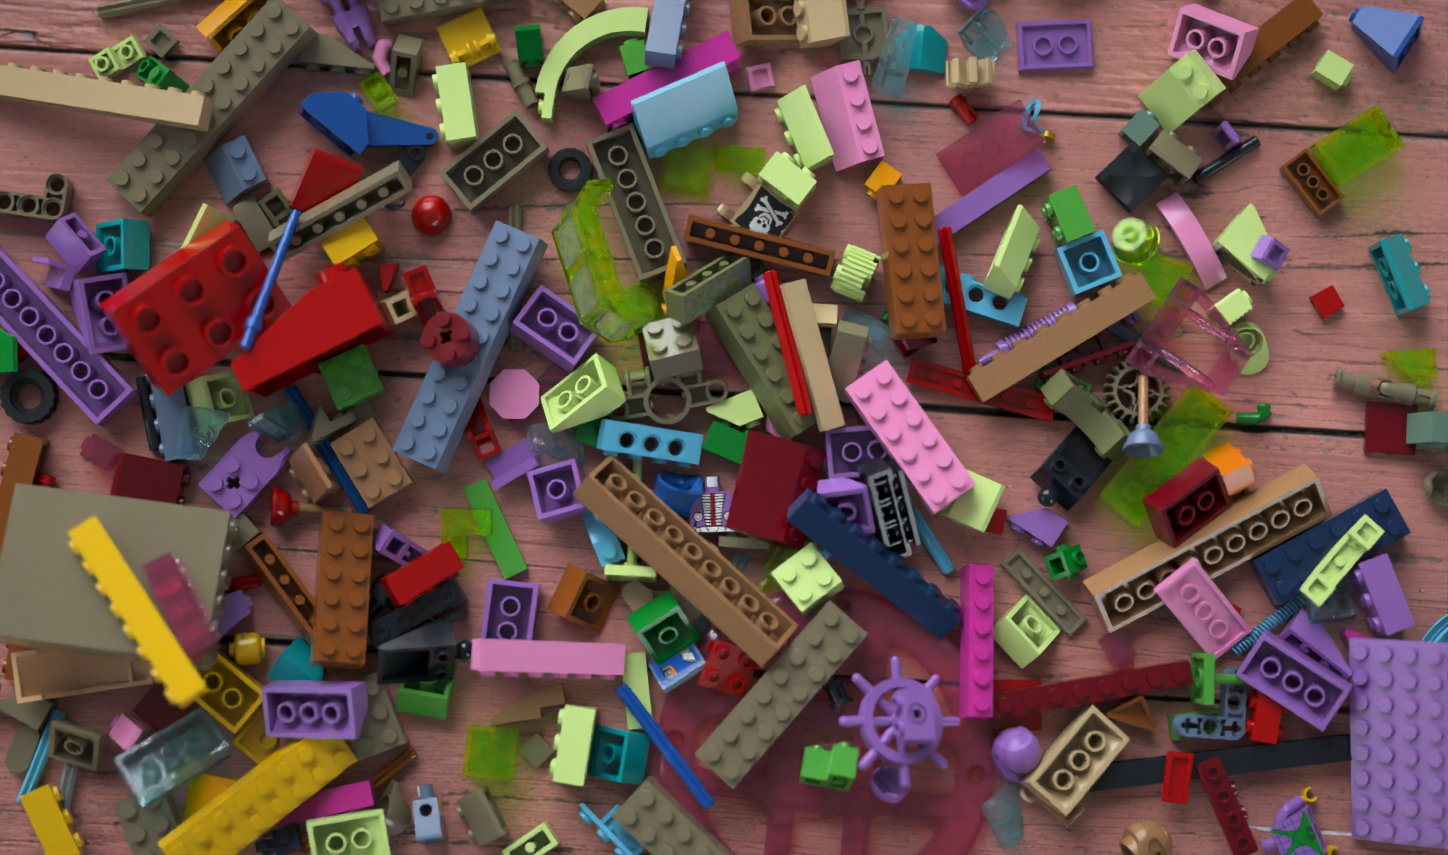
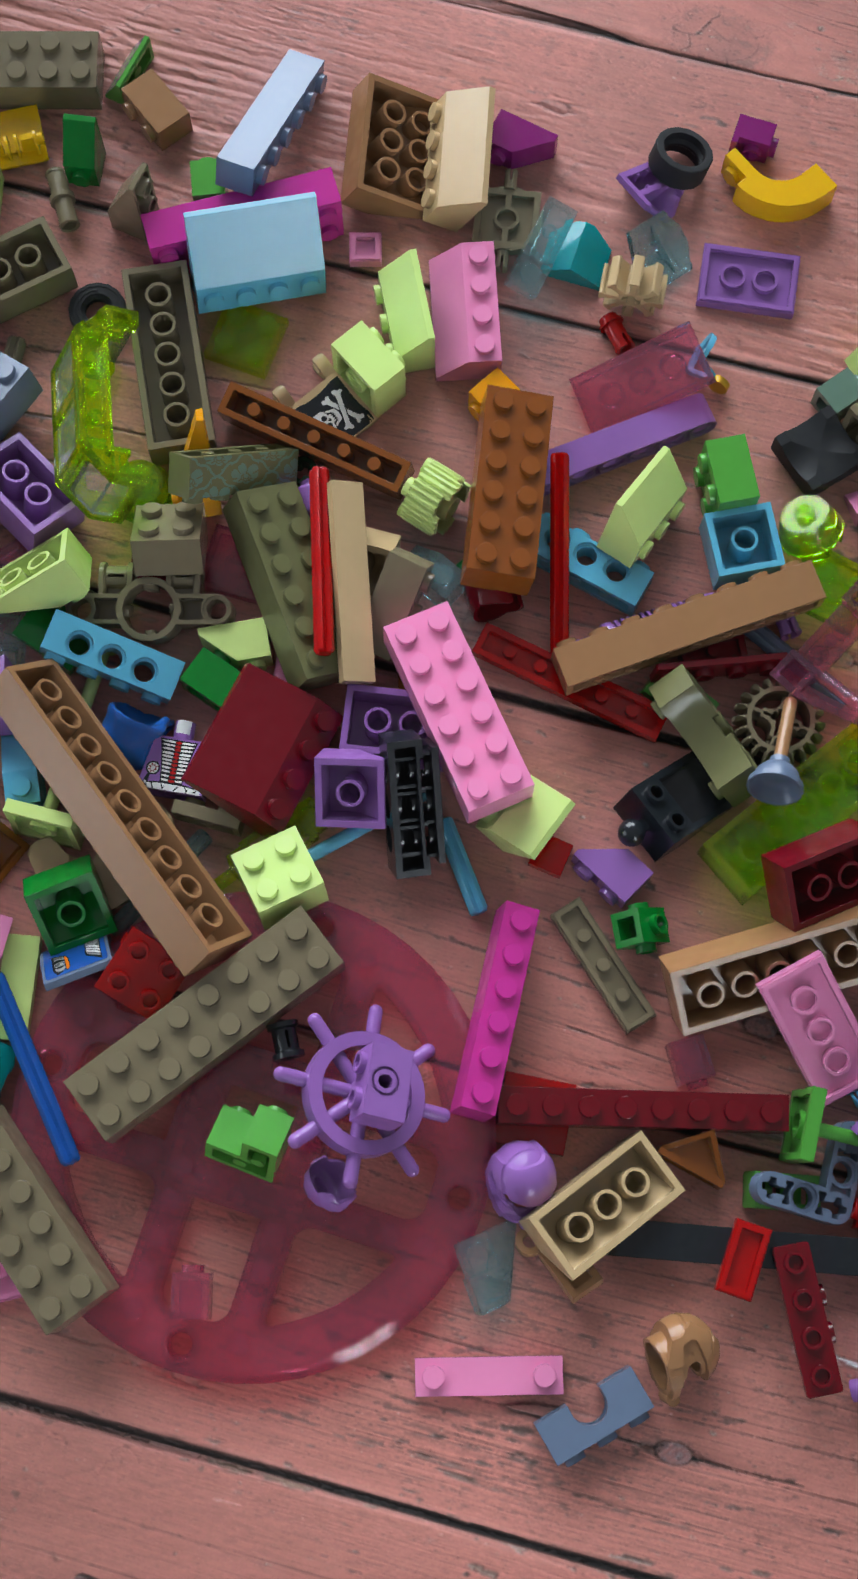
camera: 10 degrees right, 10 degrees down
(591, 31) = (165, 155): yellowish green arch -> none
(739, 159) = (309, 338): clear neon green slope -> none
(874, 563) = (375, 872): dark blue brick -> none
(1025, 631) = (565, 1012): yellowish green slope -> none

